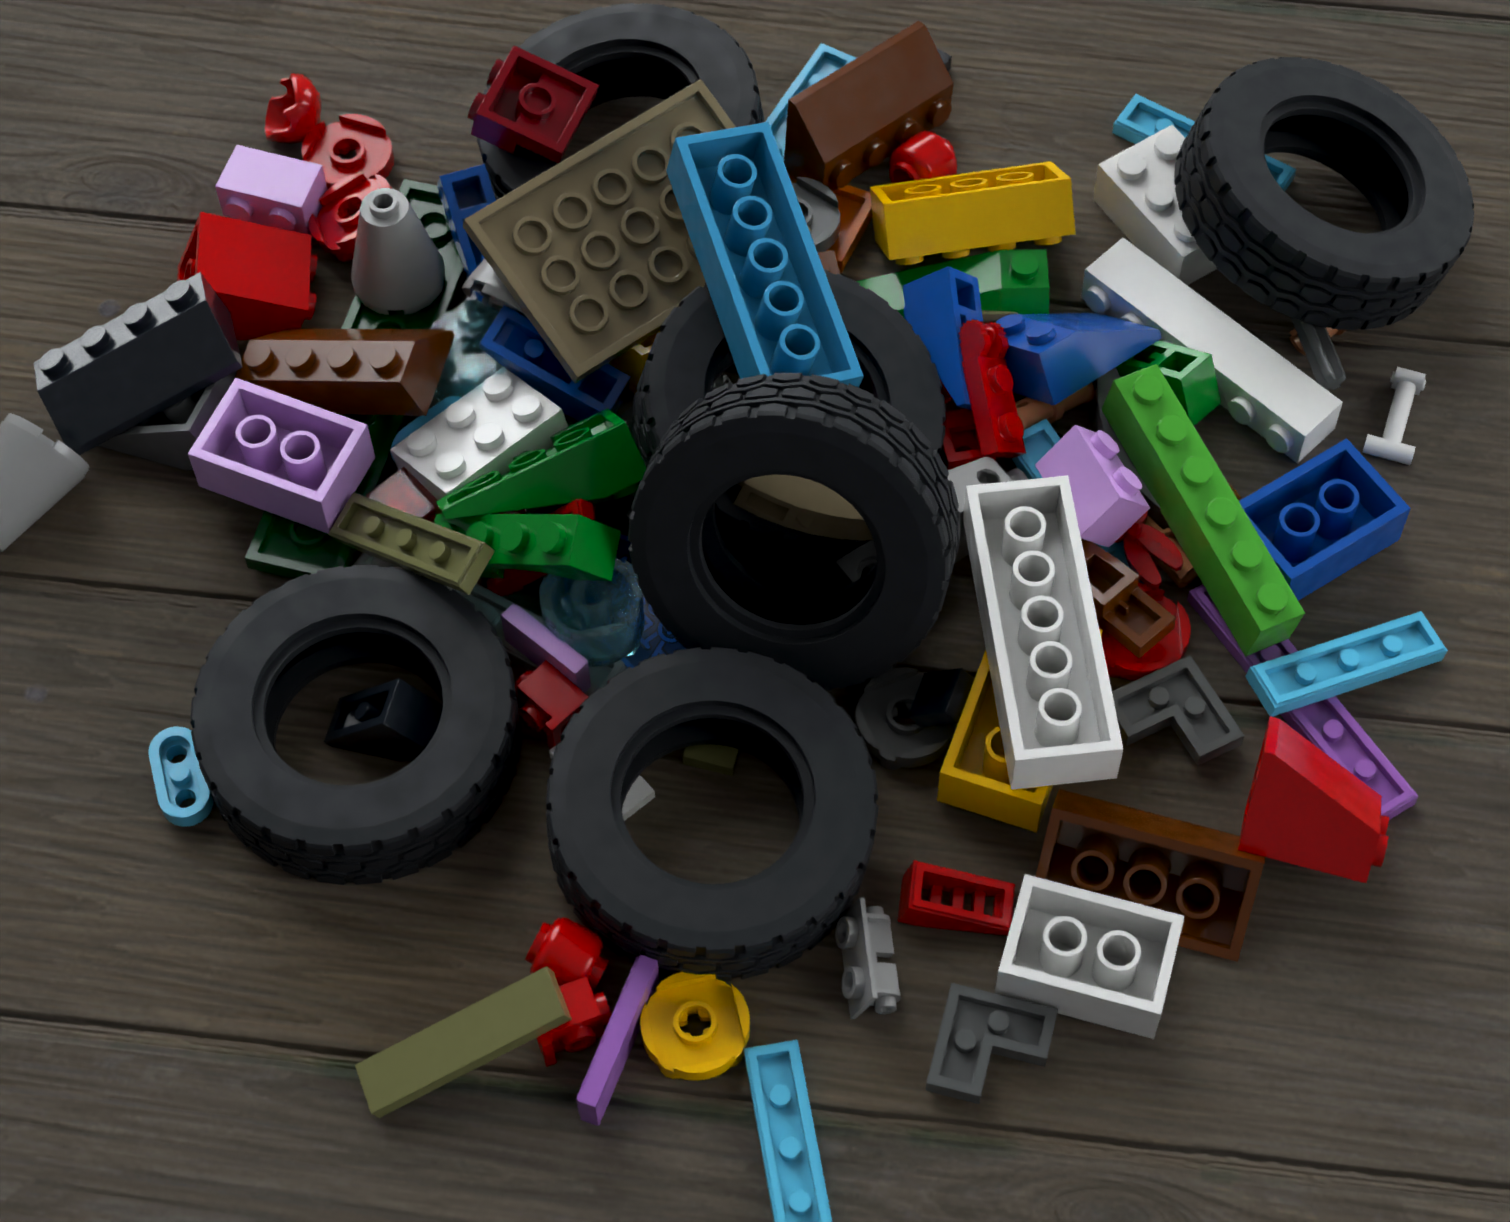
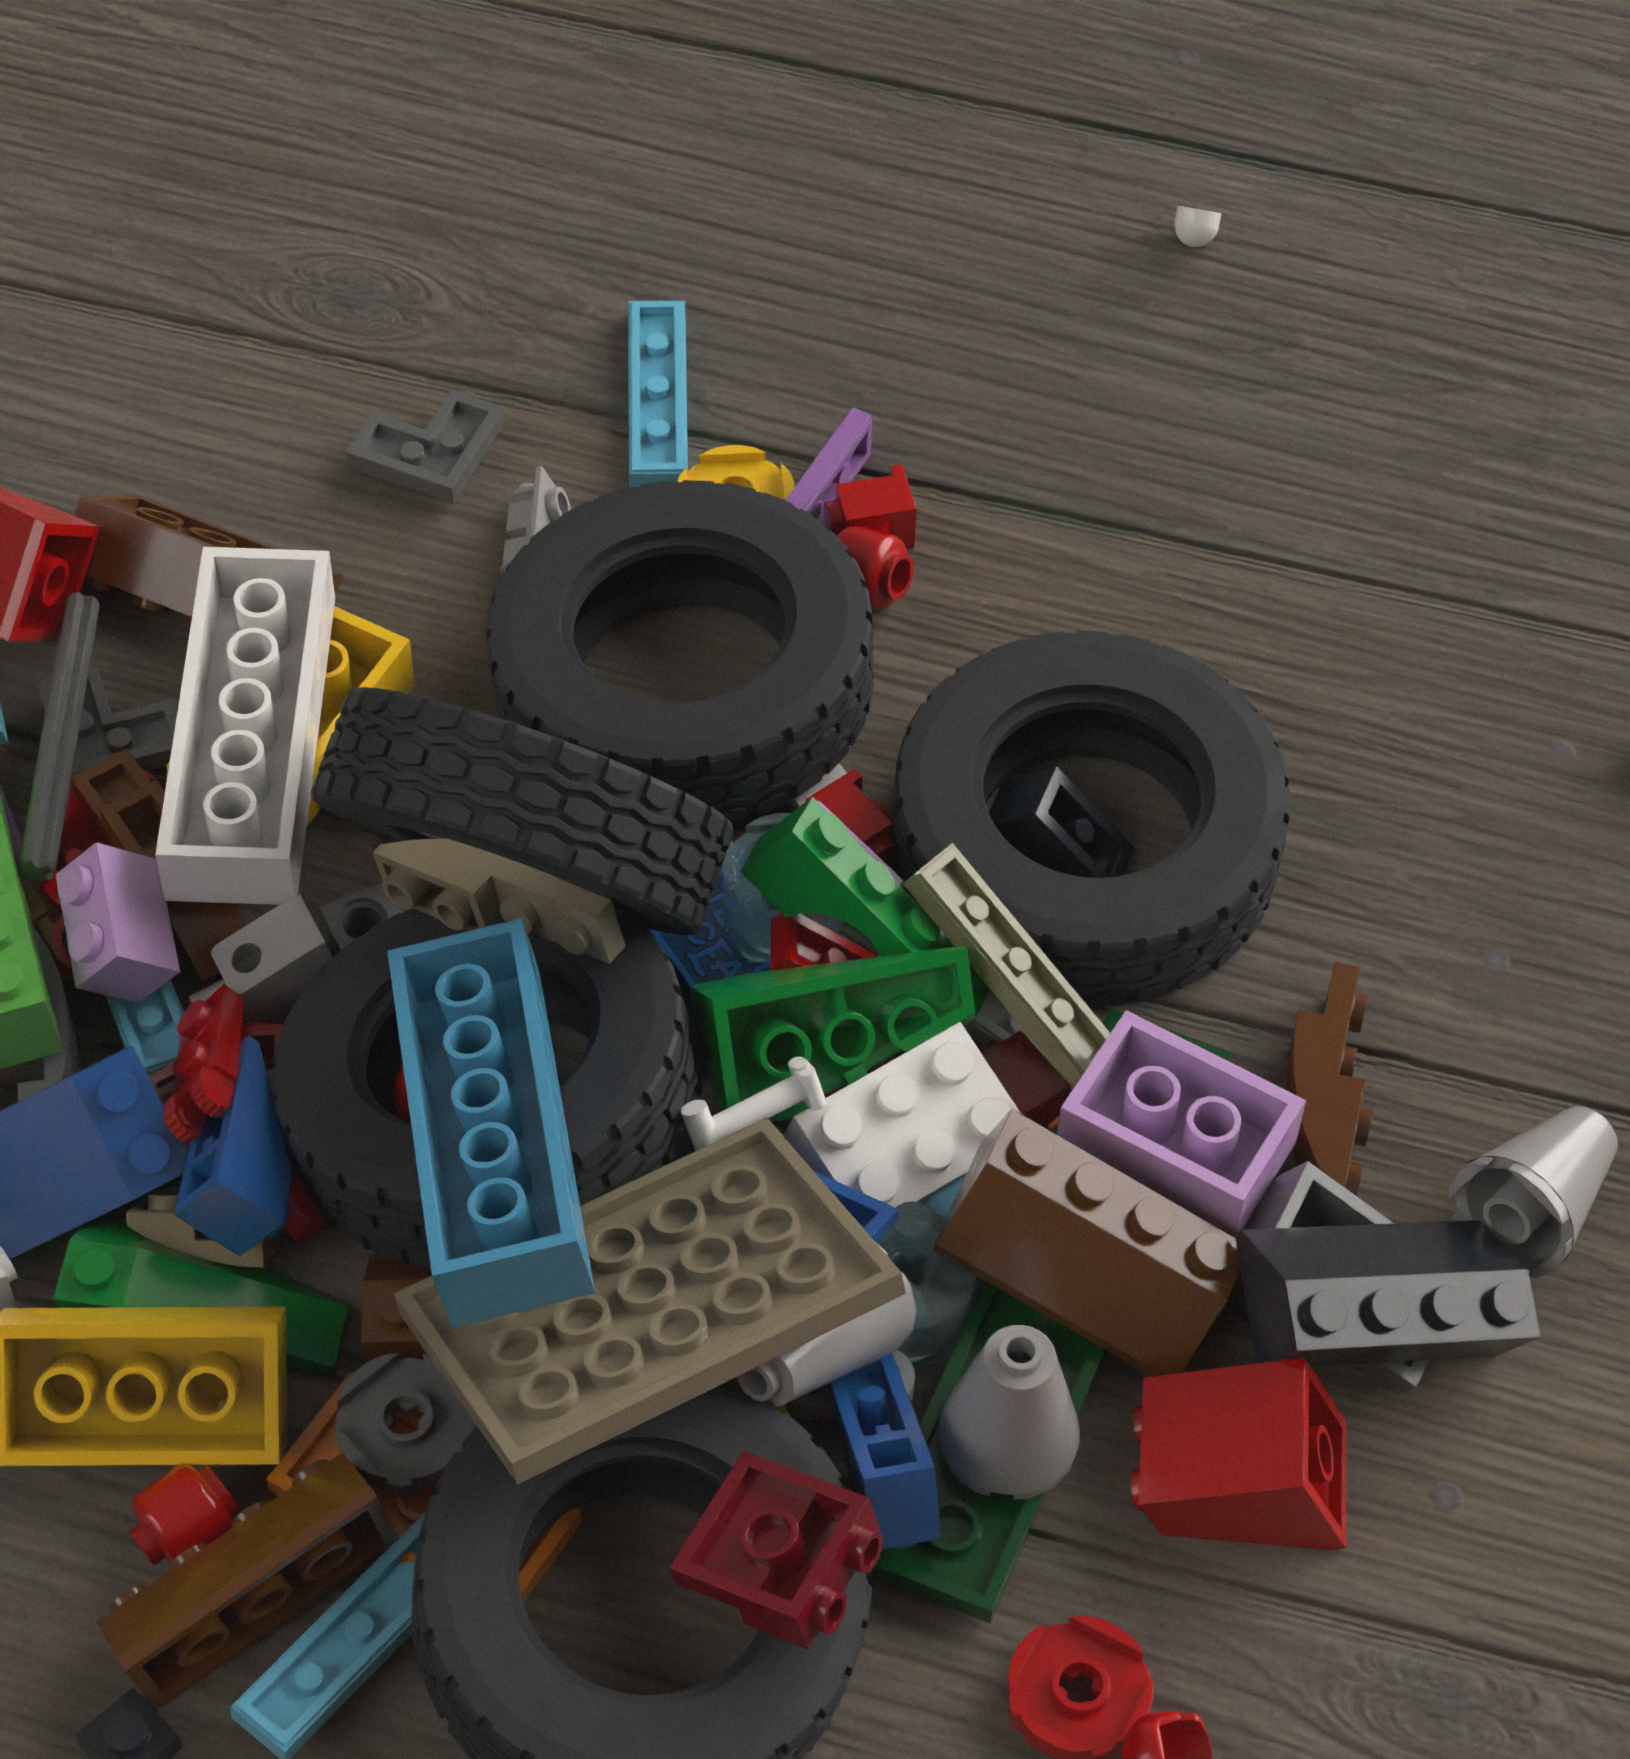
camera: 175 degrees left, 5 degrees down
(178, 548) = (1322, 1074): none -> reddish brown slope
(179, 780) = (1313, 819): medium azure plate -> none
(271, 189) = (1200, 1610): lavender brick -> none
(335, 226) = (1041, 1570): red plate -> none
(462, 1042) = (985, 489): olive tile -> none
(556, 416) = (799, 1087): none -> white piece
(953, 917) = (456, 599): red slope -> none
(1089, 955) = (297, 480): white brick -> none
(1202, 667) = (59, 739): none -> dark grey axle

